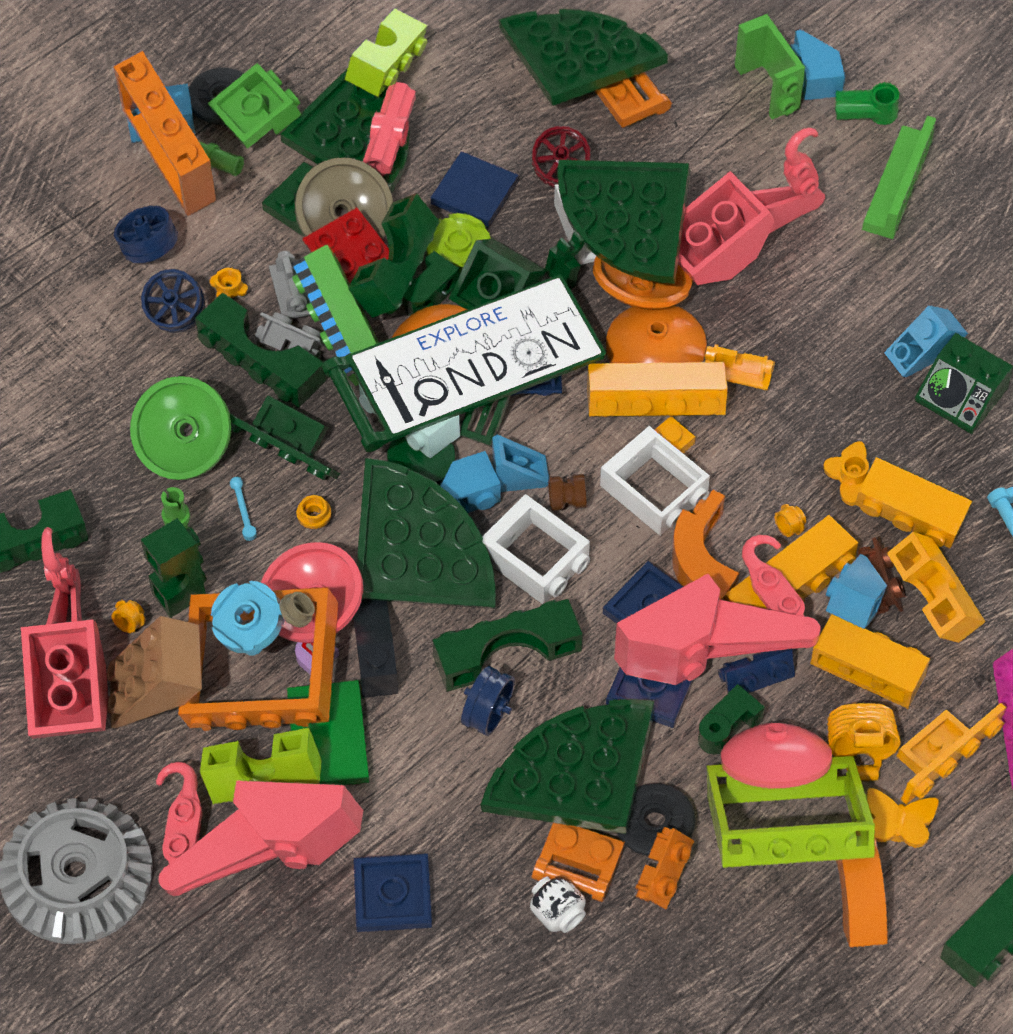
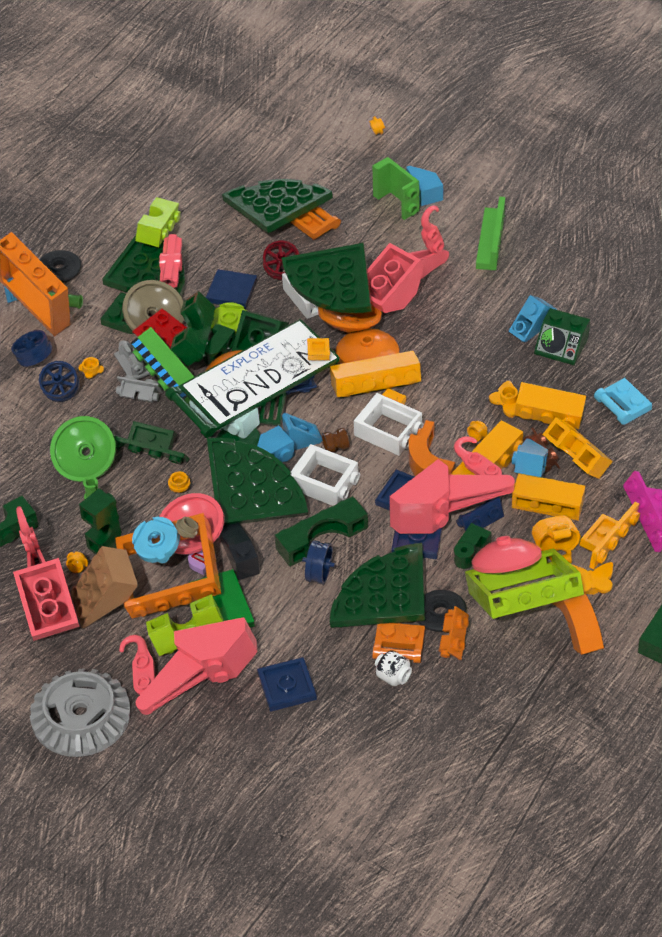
camera: 10 degrees left, 10 degrees down
(248, 531) = (140, 501): medium azure hinge -> none
(256, 105) = (83, 265): bright green plate -> none
(290, 372) = (143, 407): dark green arch -> none
(562, 259) = (298, 309): dark green plate -> none
(574, 335) = (318, 349): none -> light orange plate
(742, 368) = (429, 354): light orange hinge -> none
(879, 104) = (466, 198): green piece -> none

